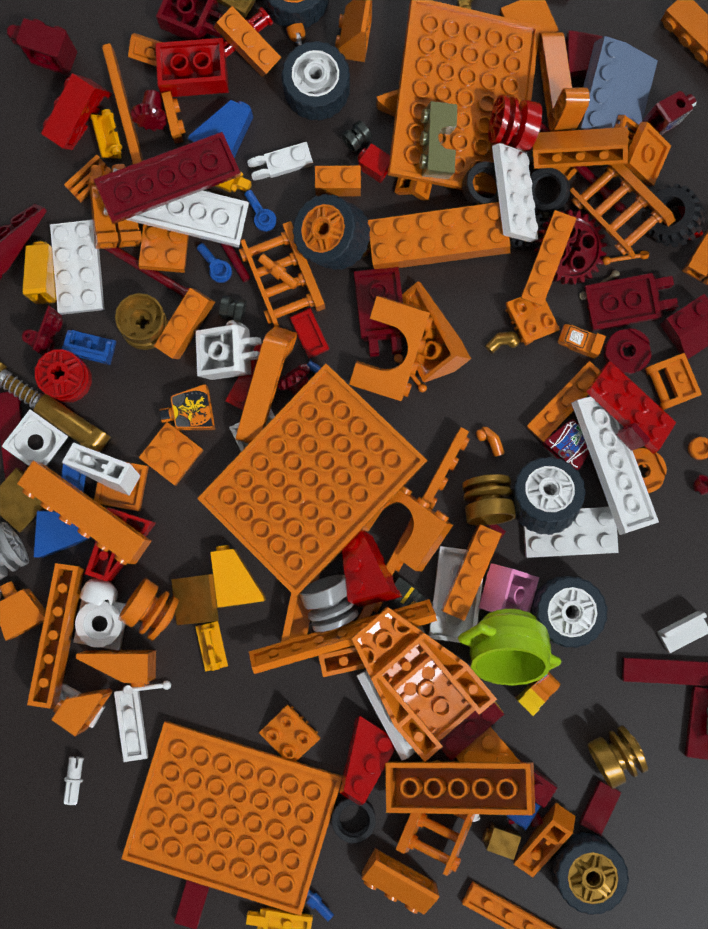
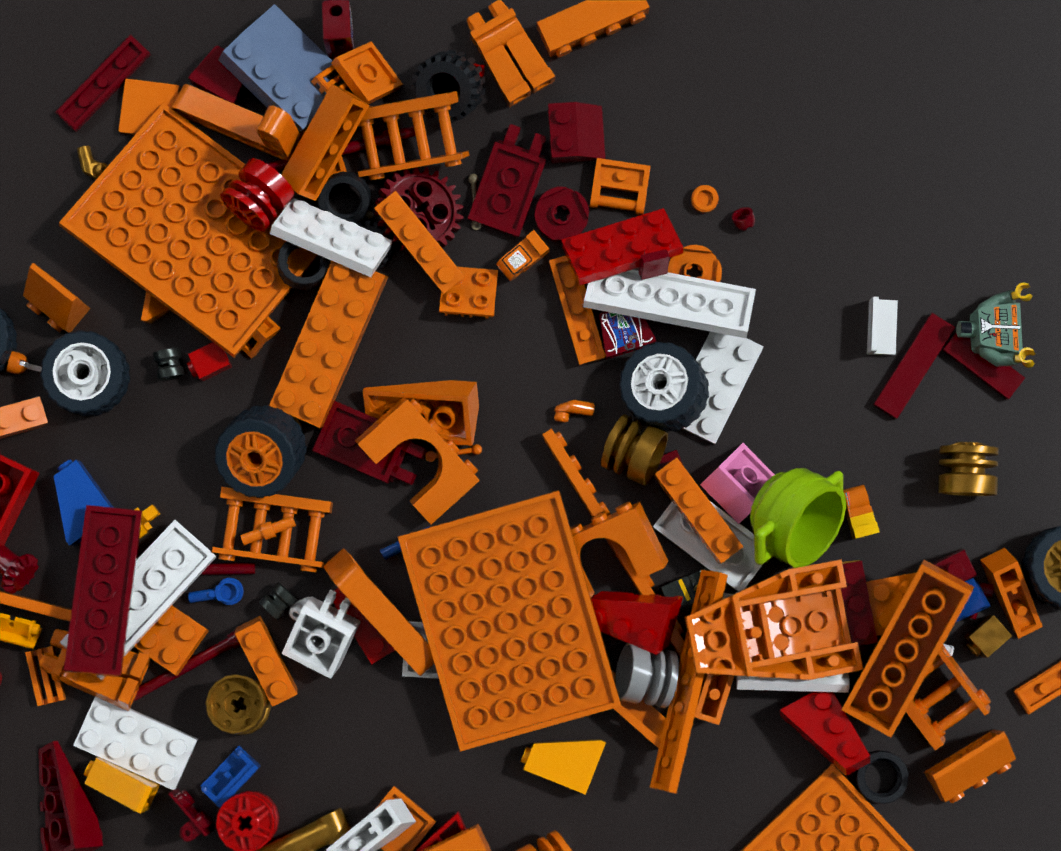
camera: 65 degrees left, 0 degrees up
(171, 453) = (394, 753): orange plate -> none
(172, 108) = (44, 549): orange plate -> none
(190, 410) = (361, 707): torso -> none
(196, 599) = (565, 812): pearl gold tile -> none
(211, 646) = (621, 824): light orange hinge -> none
(264, 219) = (200, 513): blue plate -> none
(282, 161) = (148, 457): white hinge -> none
(289, 734) = (758, 794): orange hinge -> none
(295, 379) = (393, 578): dark red gear -> none
(309, 333) = (350, 534): red tile -> none
(338, 180) = (206, 411): orange brick -> none
(437, 160) = (248, 300): olive arch -> none
(502, 338) = (473, 335): pearl gold arm -> none
(587, 606) = (809, 417): wheel -> none
(600, 807) = (1011, 517): dark red tile -> none
(643, 255) = (469, 138): orange hinge -> none

